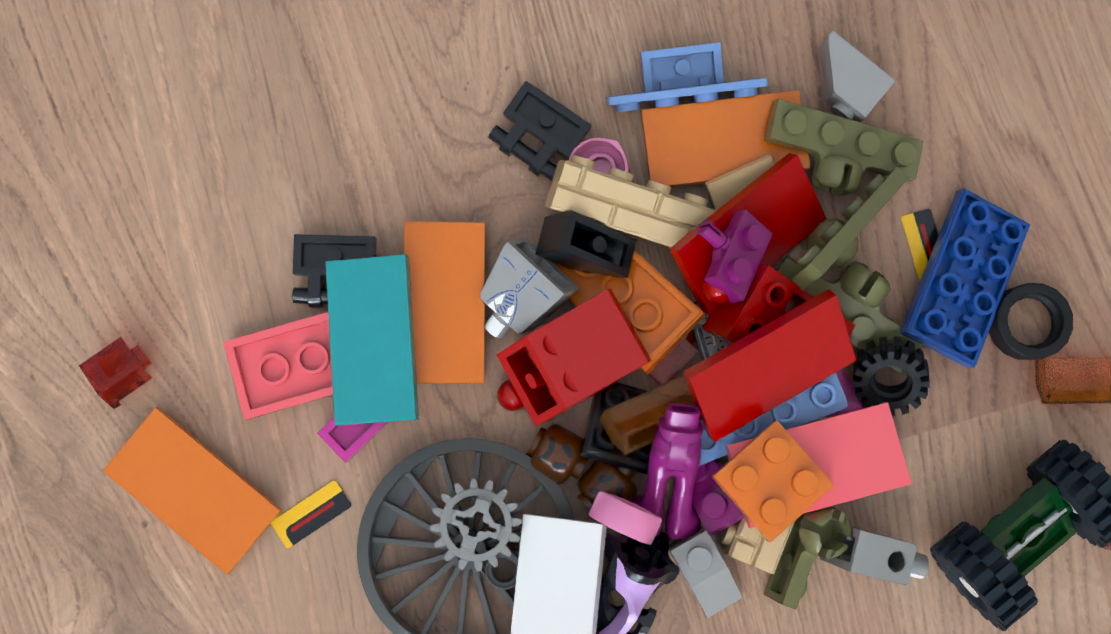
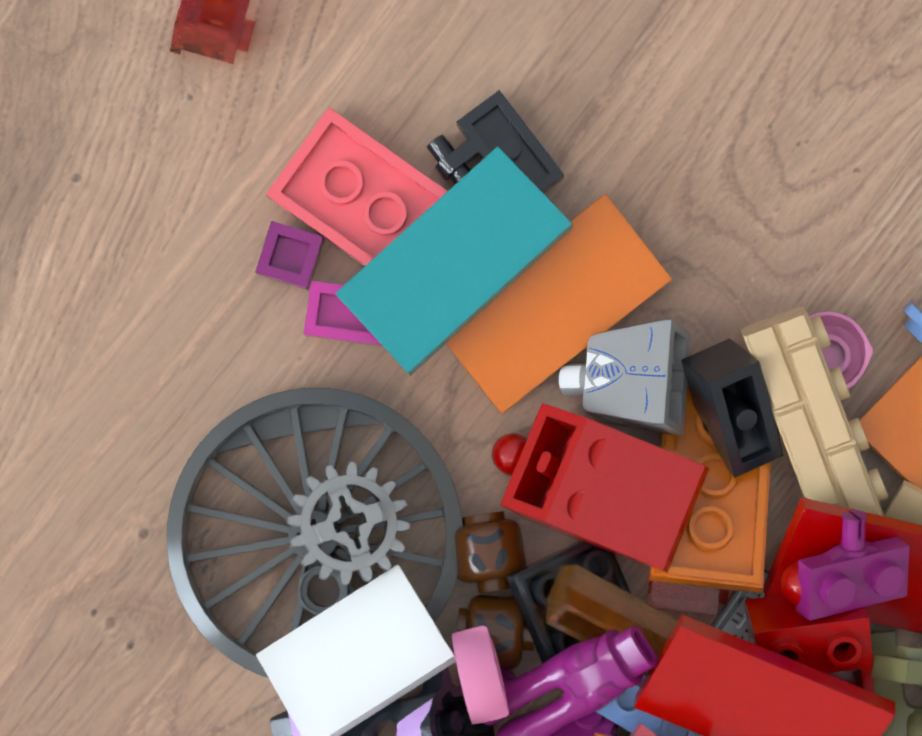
camera: 60 degrees right, 0 degrees up
(192, 490) = (150, 199): orange tile -> none
(292, 433) = (289, 255): none -> magenta plate
(311, 514) = (221, 341): sticker -> none
(545, 120) = (833, 258): black plate -> none

